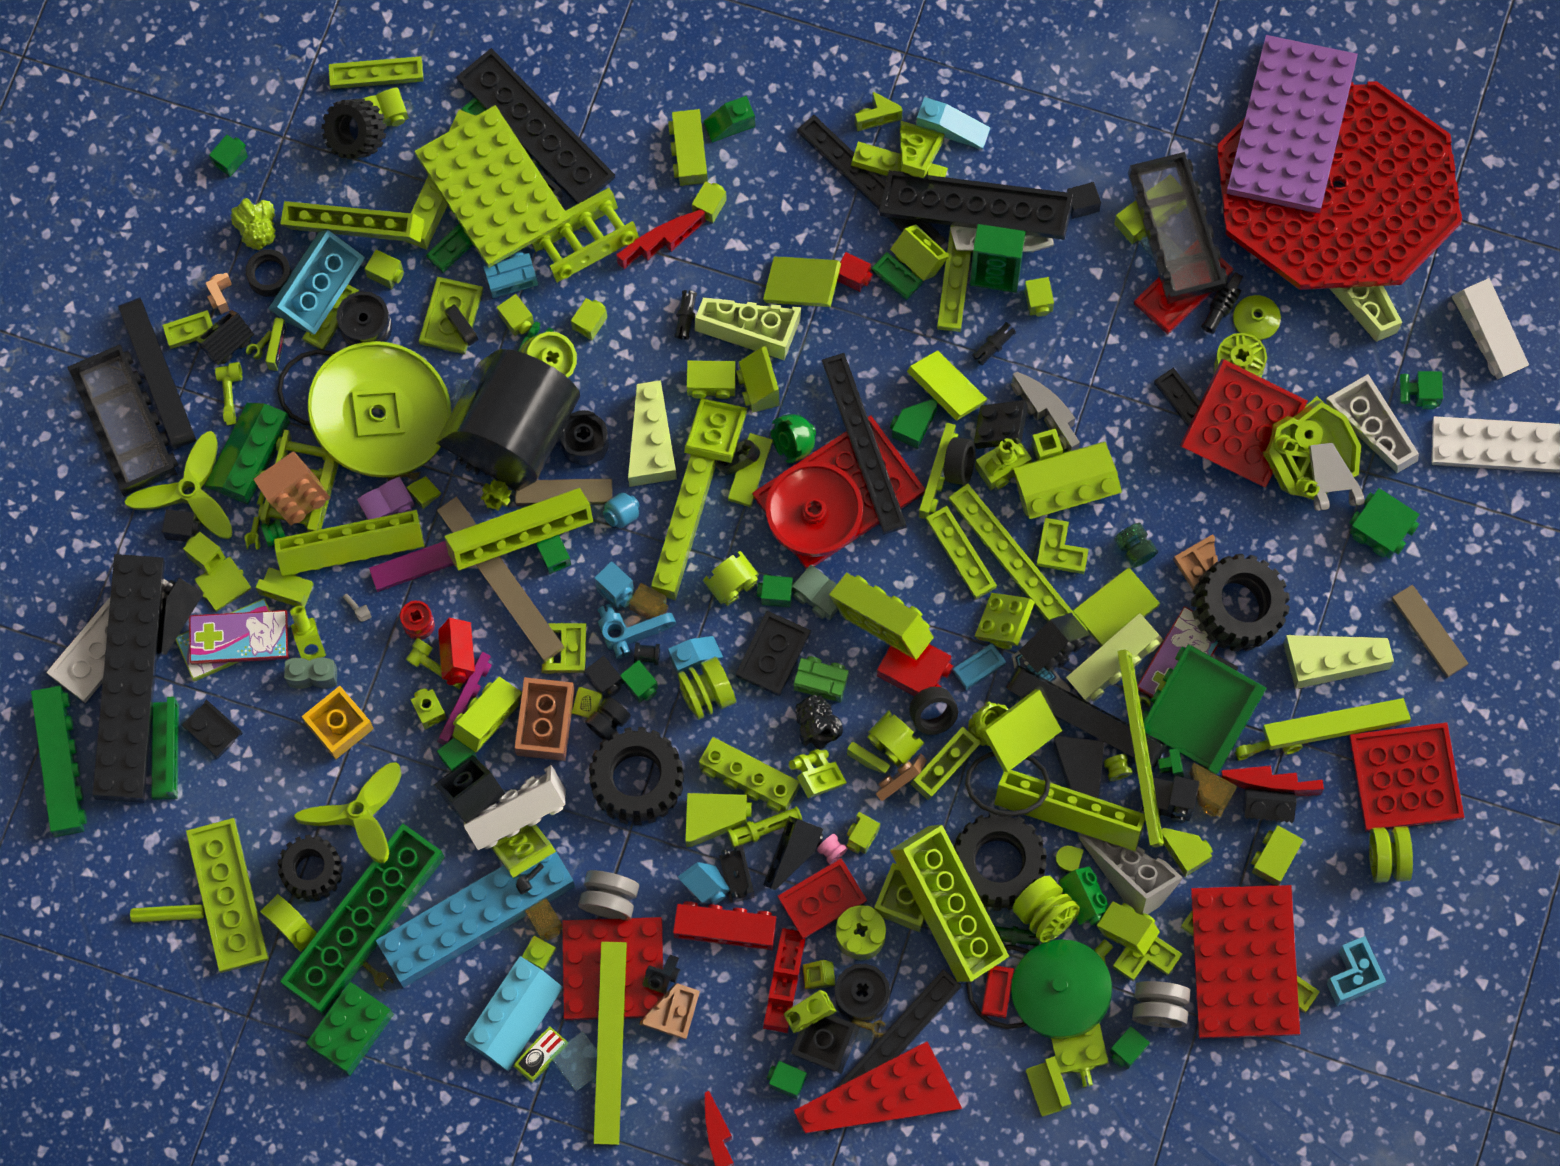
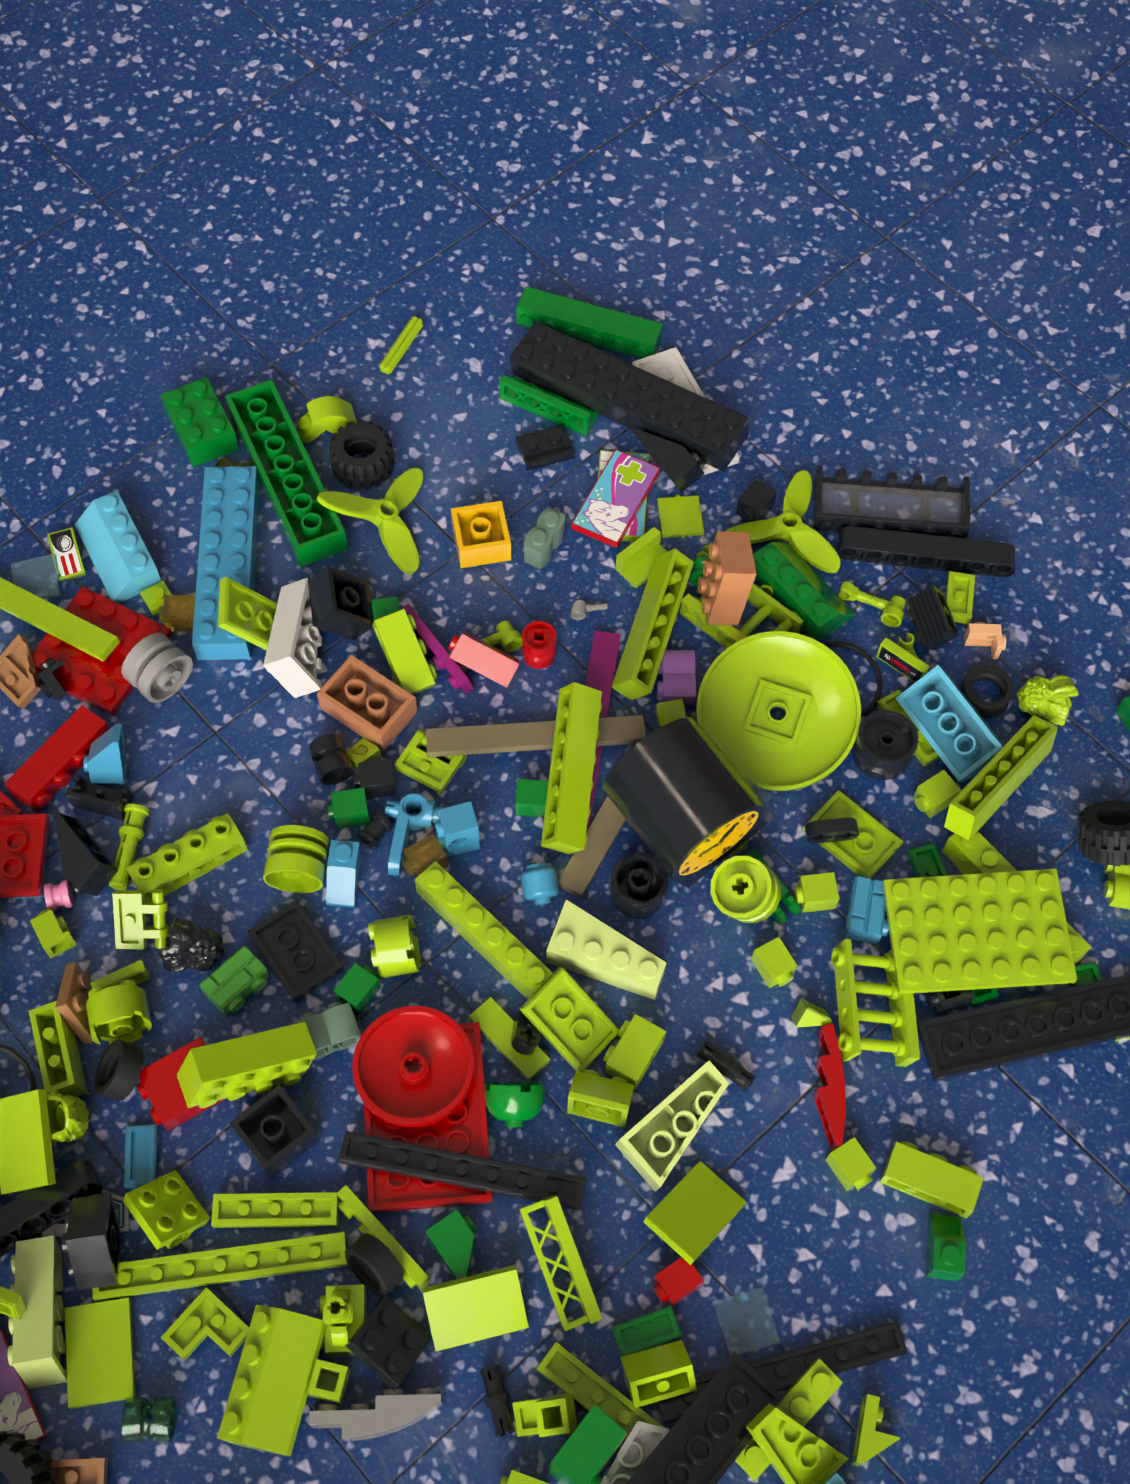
camera: 115 degrees right, 10 degrees down
(204, 553) = (717, 507): lime brick -> none
(227, 895) = (386, 390): lime plate -> none
(305, 633) = (586, 551): lime bracket -> none
(431, 715) = (448, 617): lime brick -> none
(523, 884) = (212, 595): black hand -> none
(616, 276) = (809, 1015): none -> lime slope
(629, 745) = (247, 722): black tyre -> none
(713, 814) = (171, 805): lime slope -> none
(852, 221) = (746, 1322): none -> clear light blue piece
(882, 339) = (572, 1260): none -> lime fence
(912, 579) = (274, 1131): none -> black brick
(982, 302) = (545, 1415): none -> lime brick

